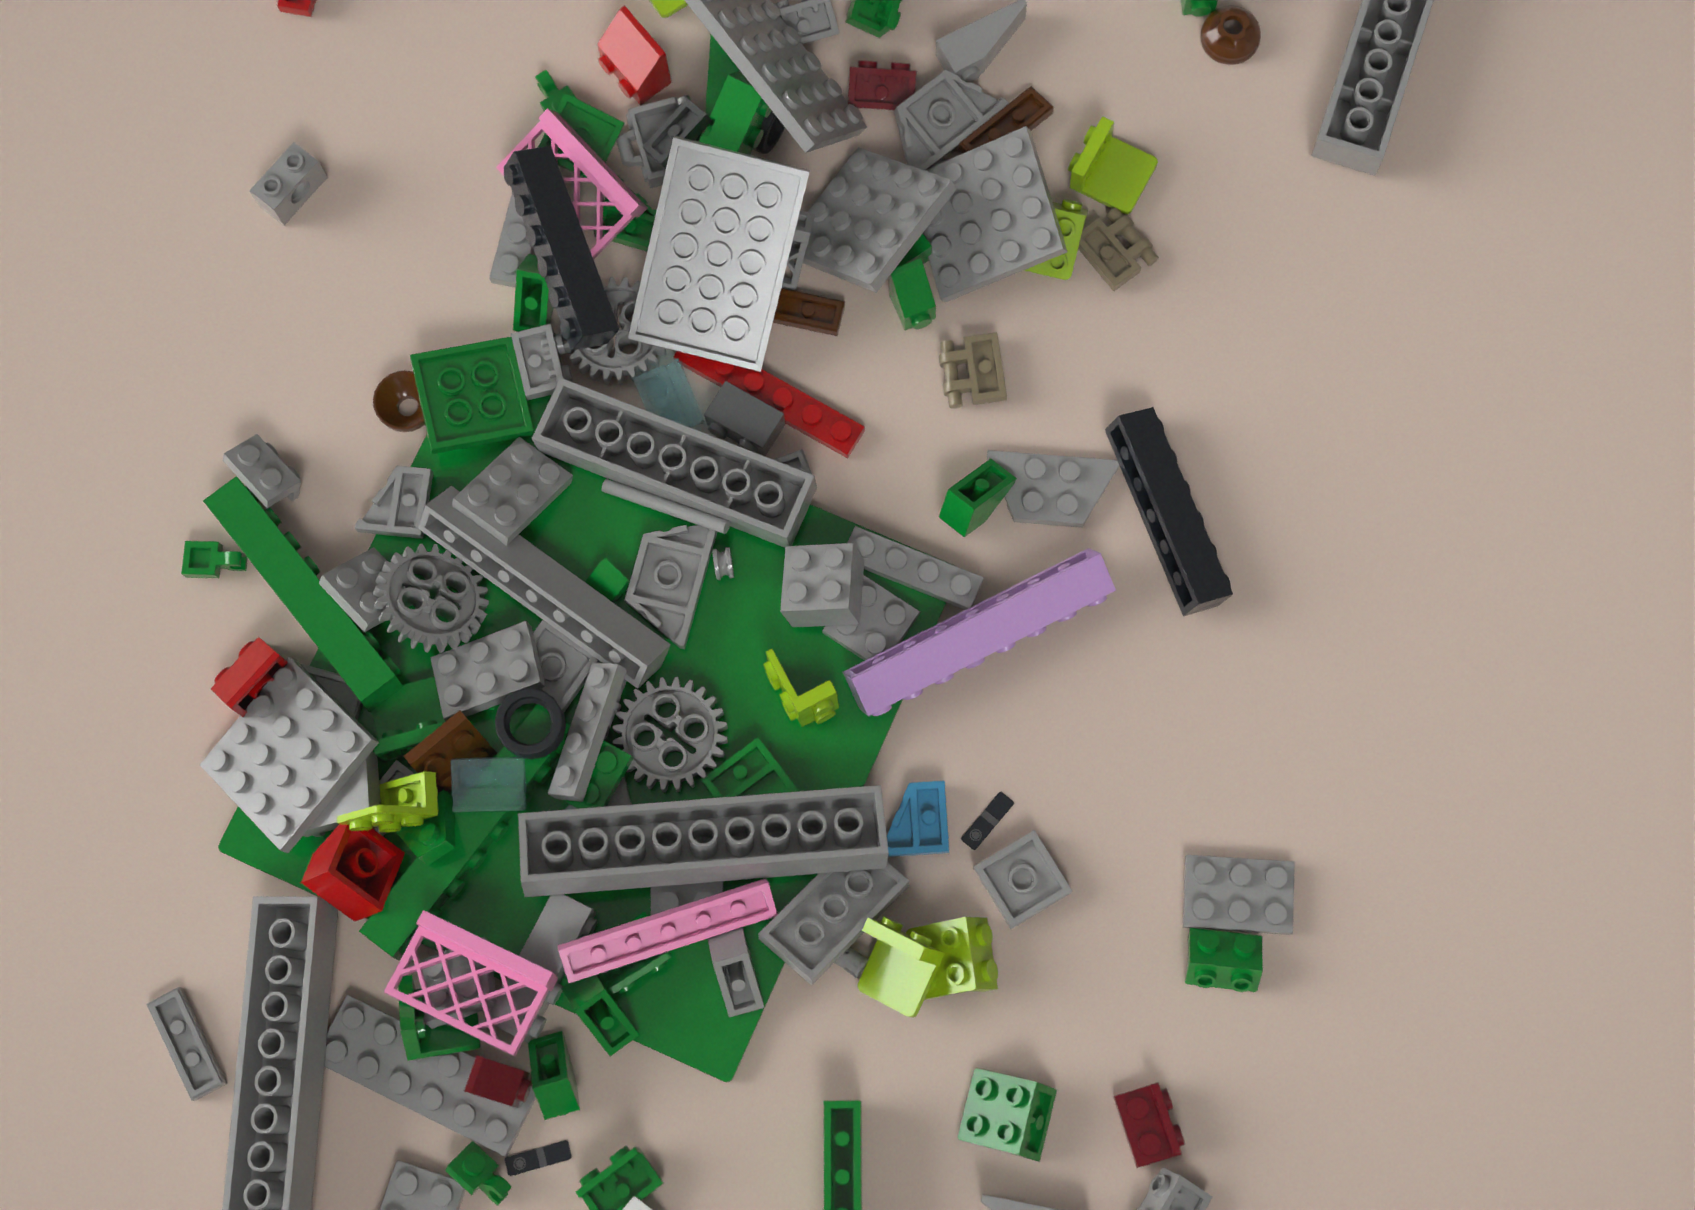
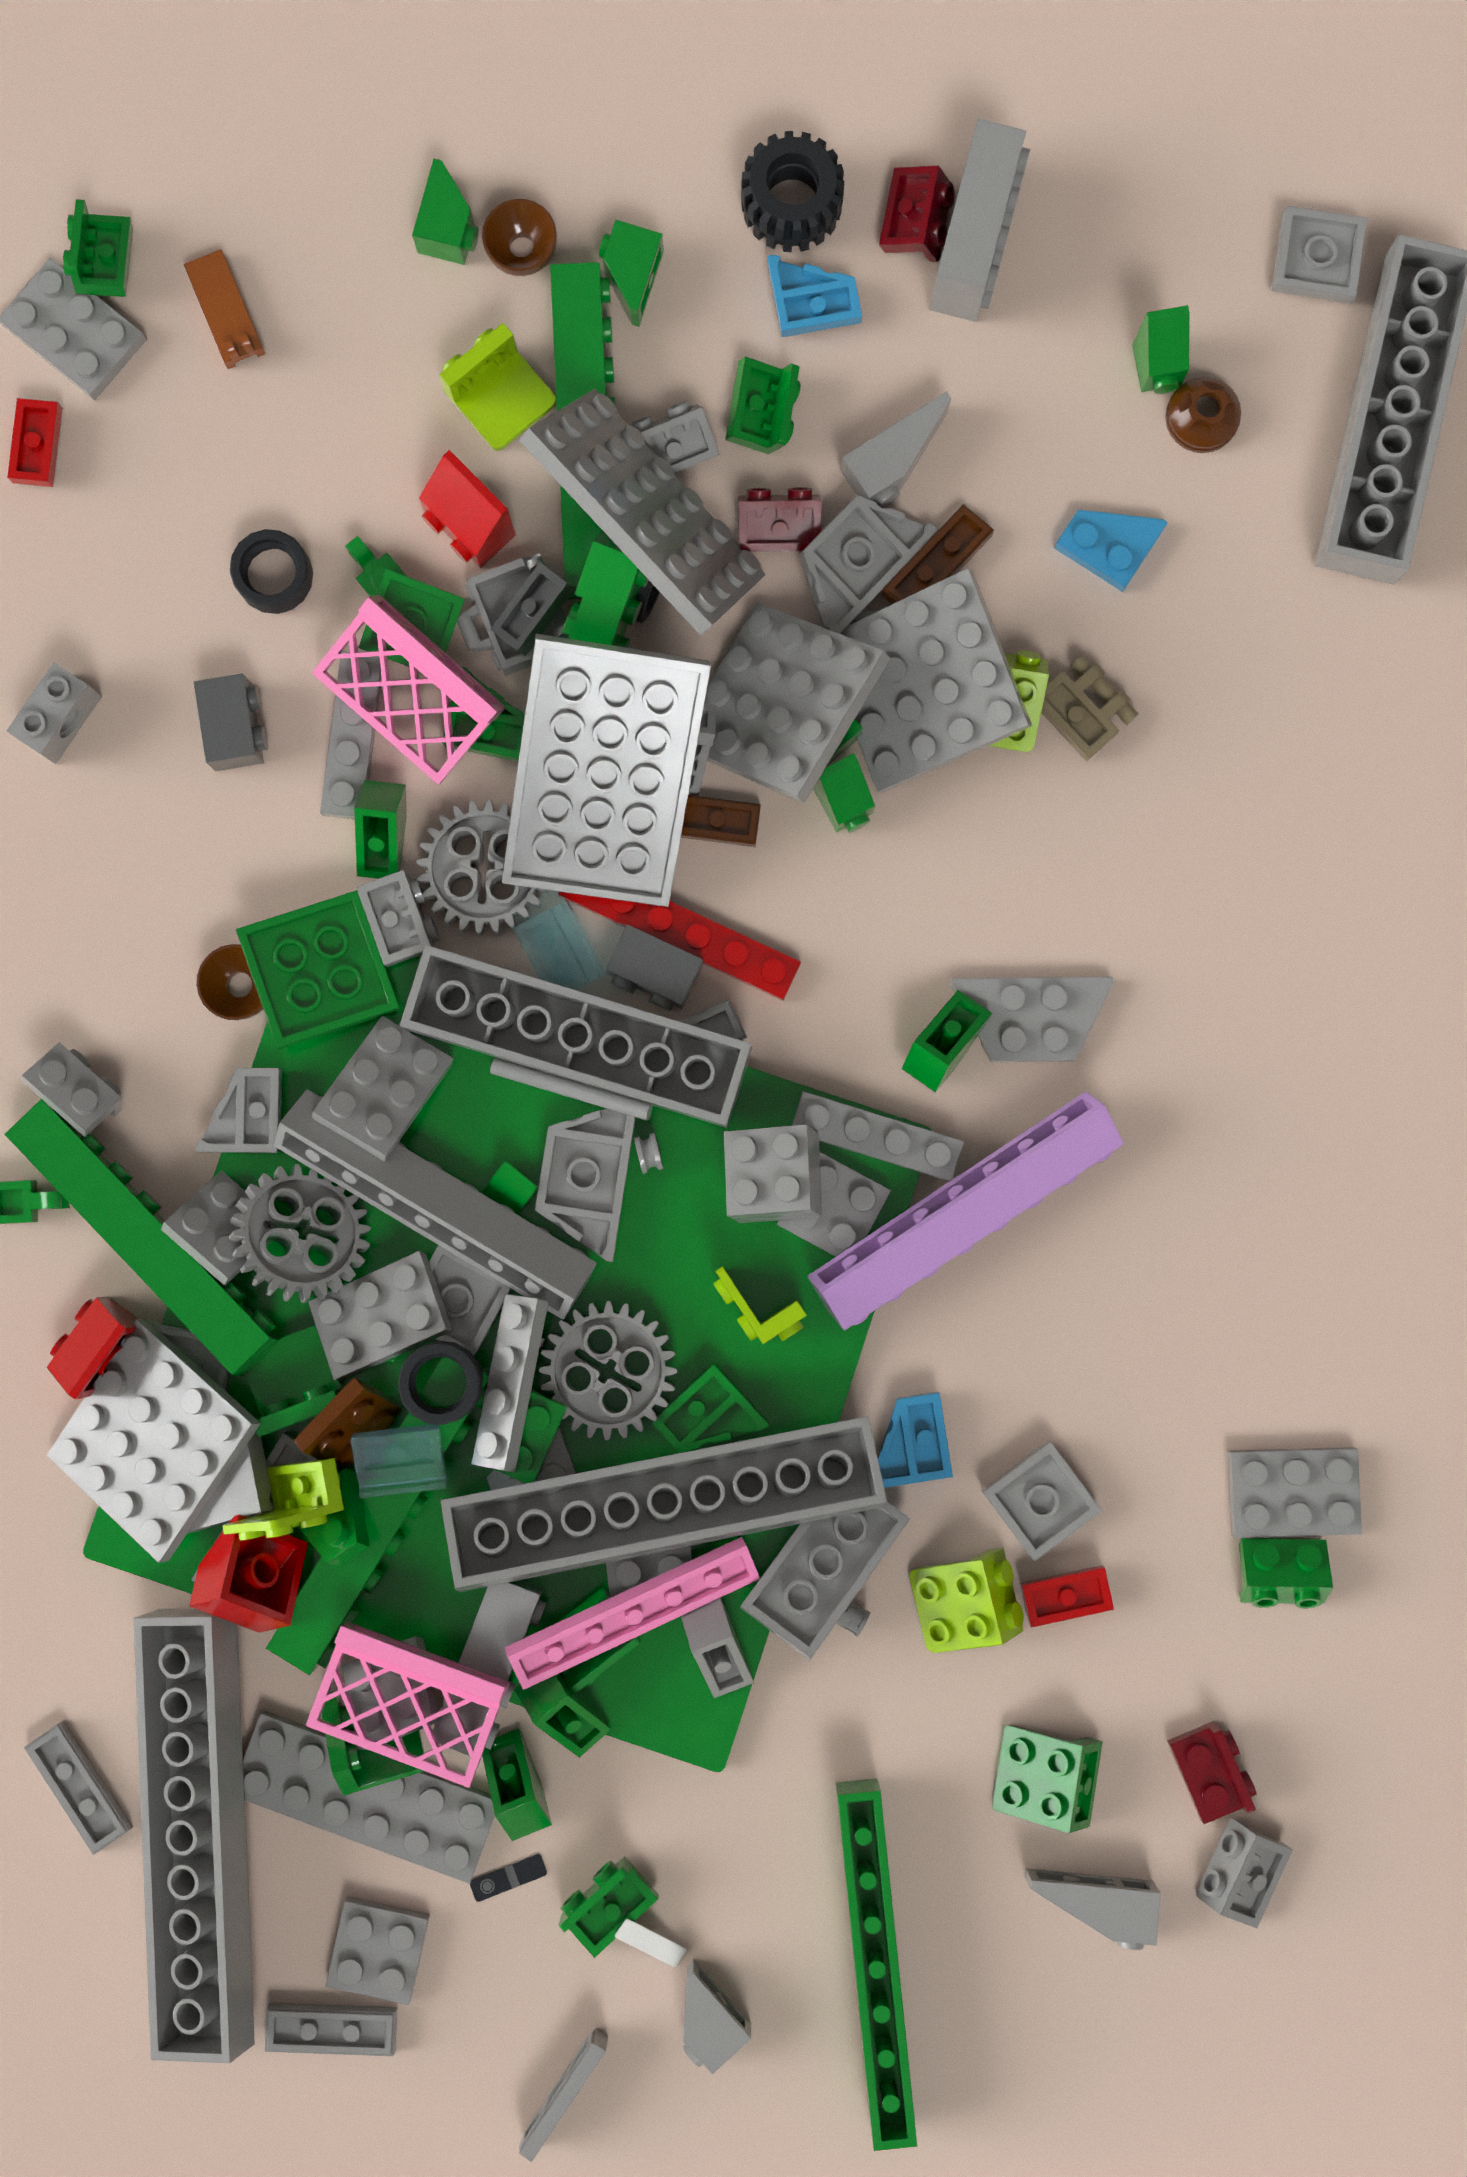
camera: 10 degrees left, 10 degrees up
(427, 202) = (230, 722): none -> dark grey brick
(471, 69) = (253, 546): none -> black tyre
(476, 1170) = (436, 1904): green plate -> none
(498, 1082) = (453, 1812): dark red slope -> none
(560, 248) = (405, 776): black brick -> none
(899, 966) = (908, 1623): lime bracket -> none
(984, 370) = (939, 878): dark tan plate -> none
(987, 821) = (992, 1430): black sticker -> none
(1037, 961) = (1067, 1596): none -> red plate
(1110, 169) = (1073, 606): lime bracket -> none
(1148, 124) = (1110, 543): none -> dark azure wing
(1168, 511) = (1178, 1037): black brick -> none

